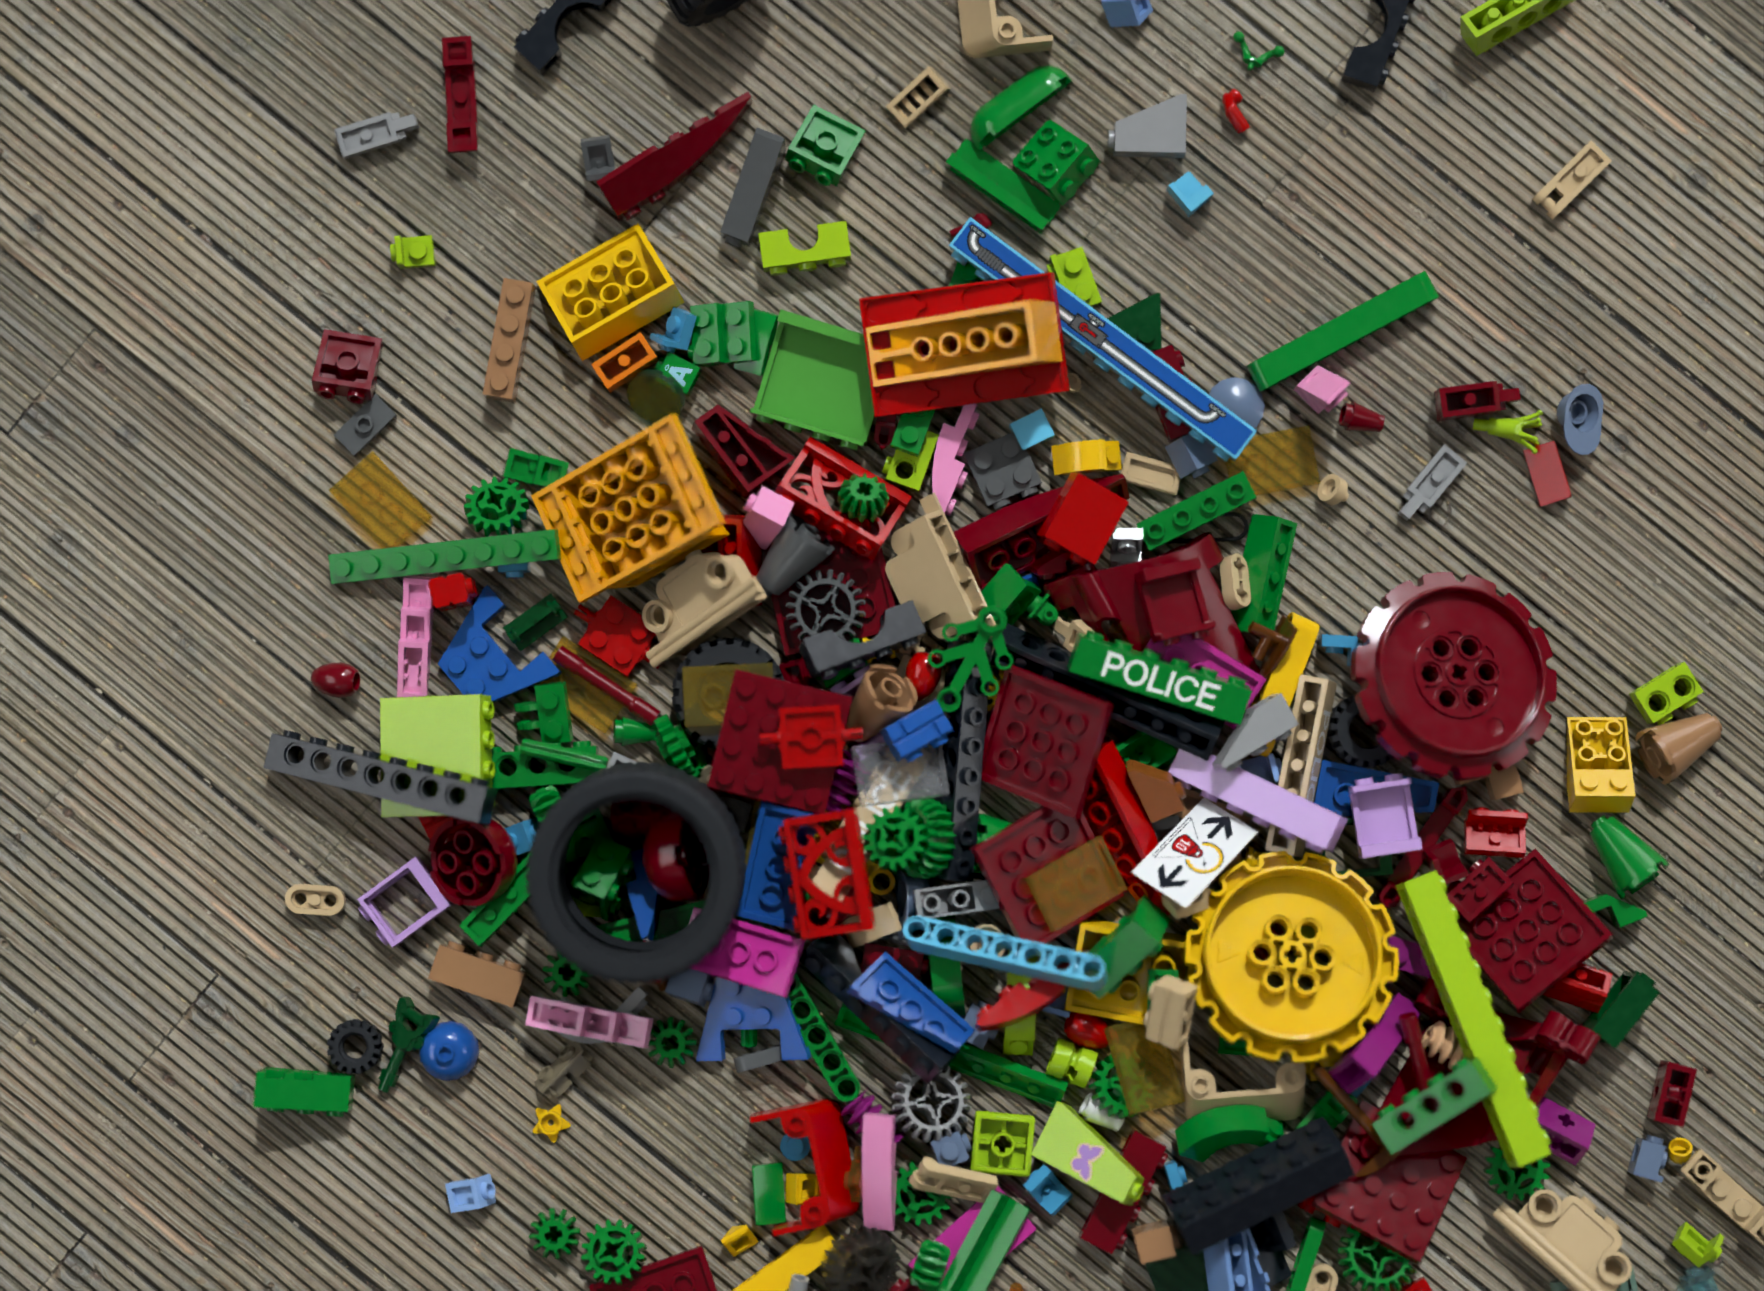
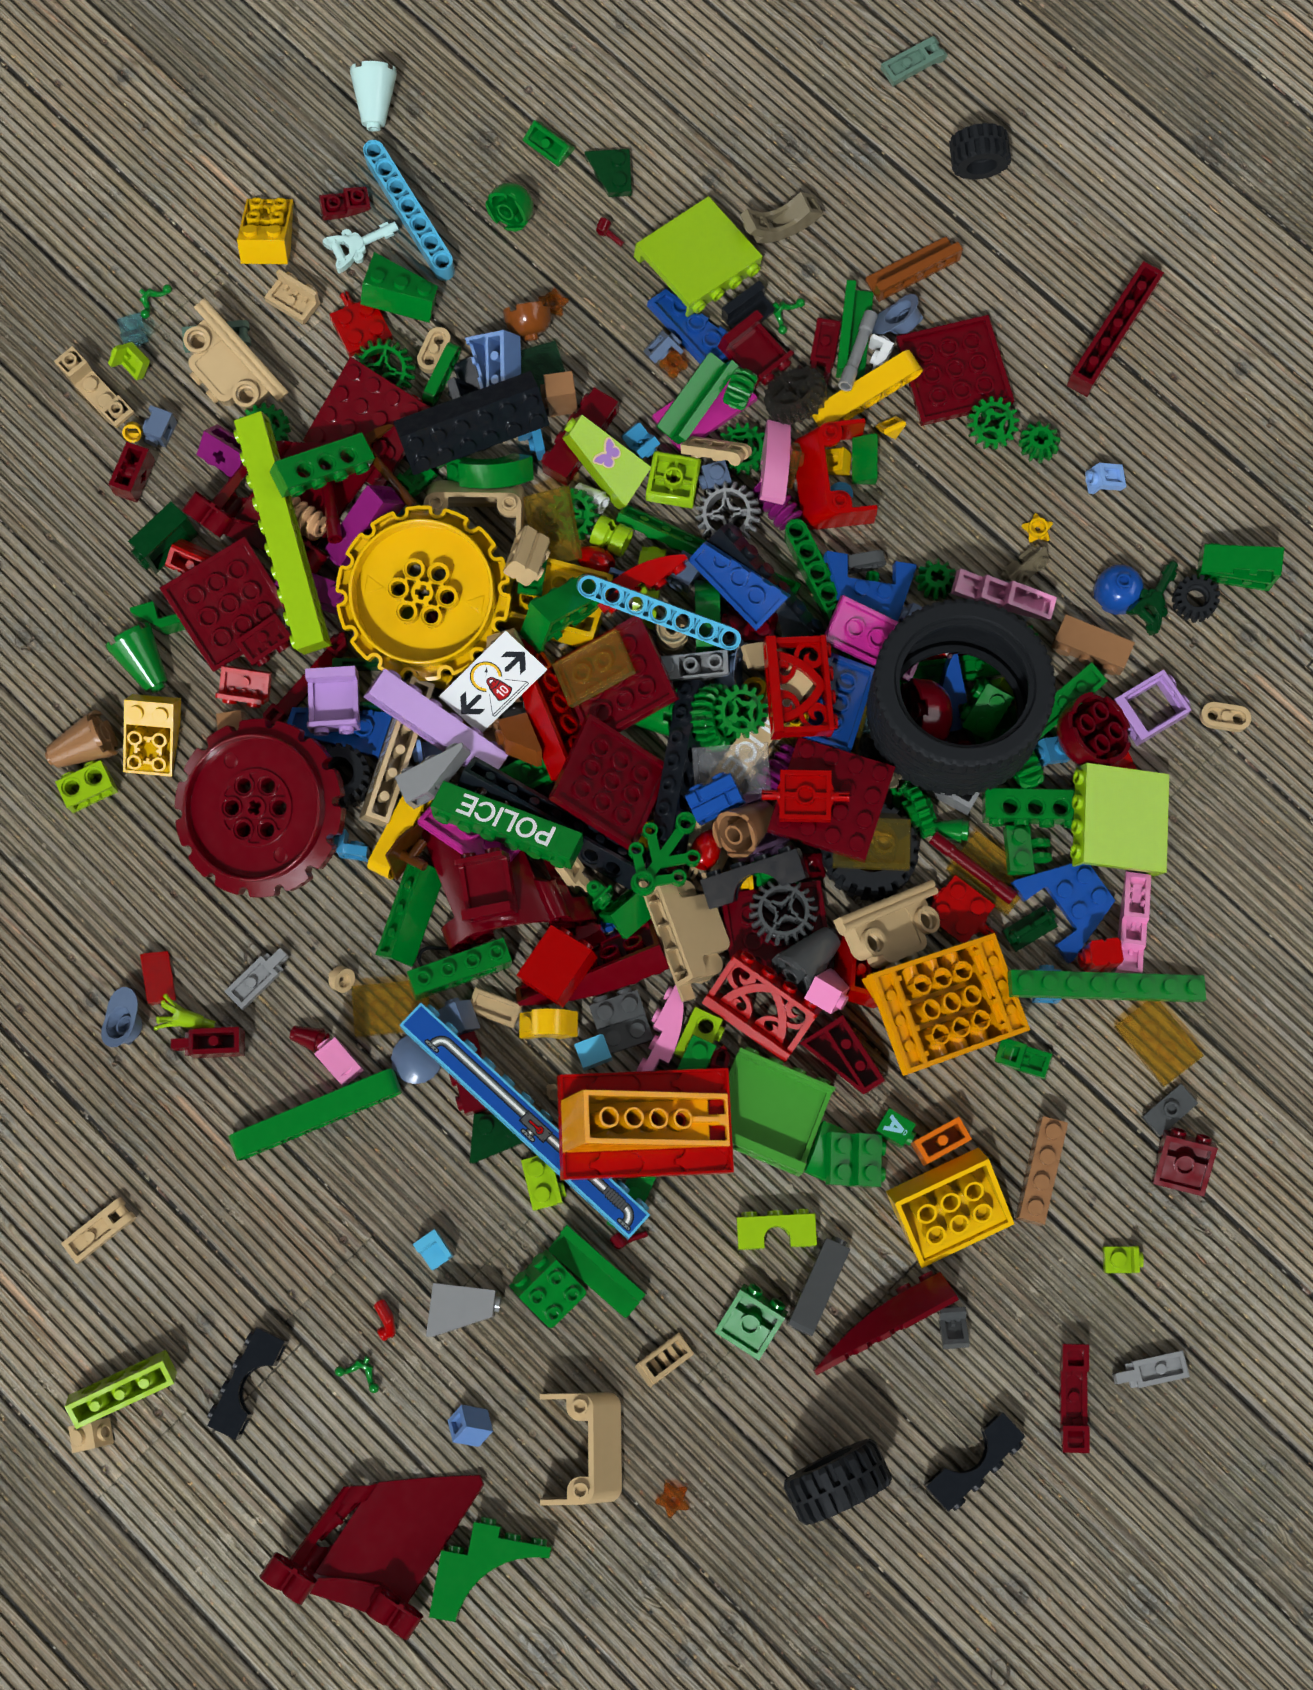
camera: 175 degrees left, 10 degrees down
(283, 758) = (1248, 829): black brick -> none
(336, 679) = (1202, 893): dark red animal -> none
(496, 506) = (1071, 1022): green gear -> none
(563, 755) = (1013, 809): green axle -> none
(655, 395) = (916, 1109): tile -> none
(678, 332) = (893, 1164): dark azure bracket -> none
(863, 498) = (748, 992): green gear -> none
(1016, 103) = (577, 1346): green brick -> none
(1126, 546) = (523, 940): light grey slope -> none
(1235, 581) = (433, 907): tan beam -> none
(1446, 861) = (288, 665): dark red panel -> none

